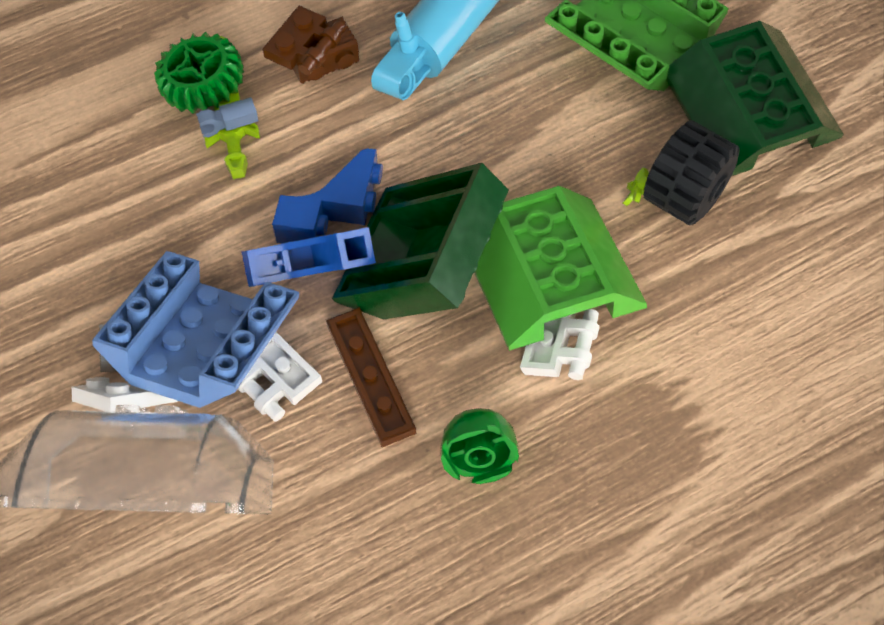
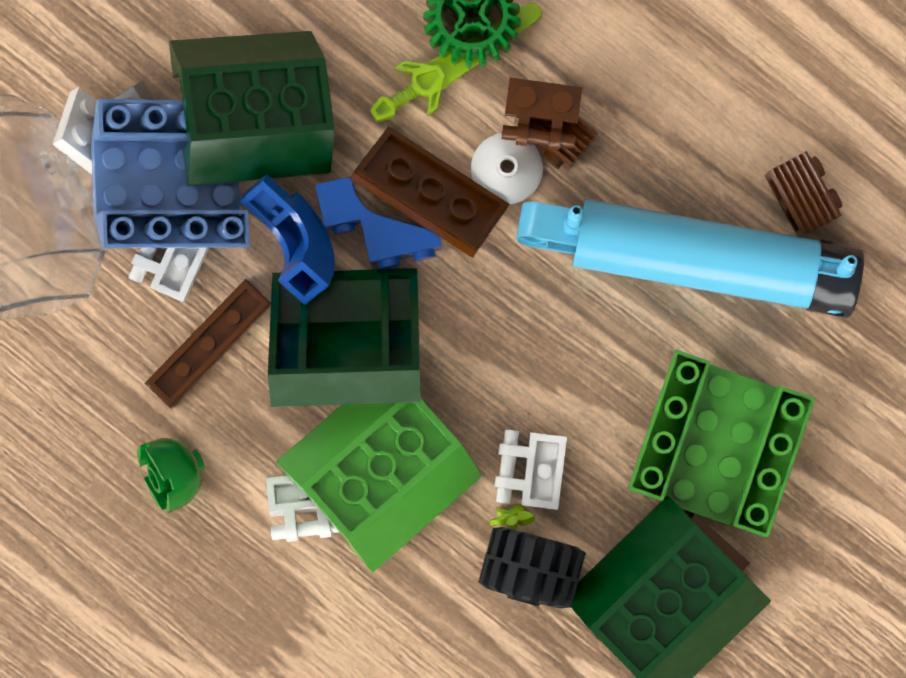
camera: 65 degrees right, 25 degrees up
(182, 238) = (254, 107): none -> dark green slope
(228, 116) = (426, 79): sand blue bar -> none
(324, 148) = (430, 191): none -> reddish brown tile
(338, 109) = (511, 186): none -> white dish
(604, 153) = (542, 473): none -> white plate

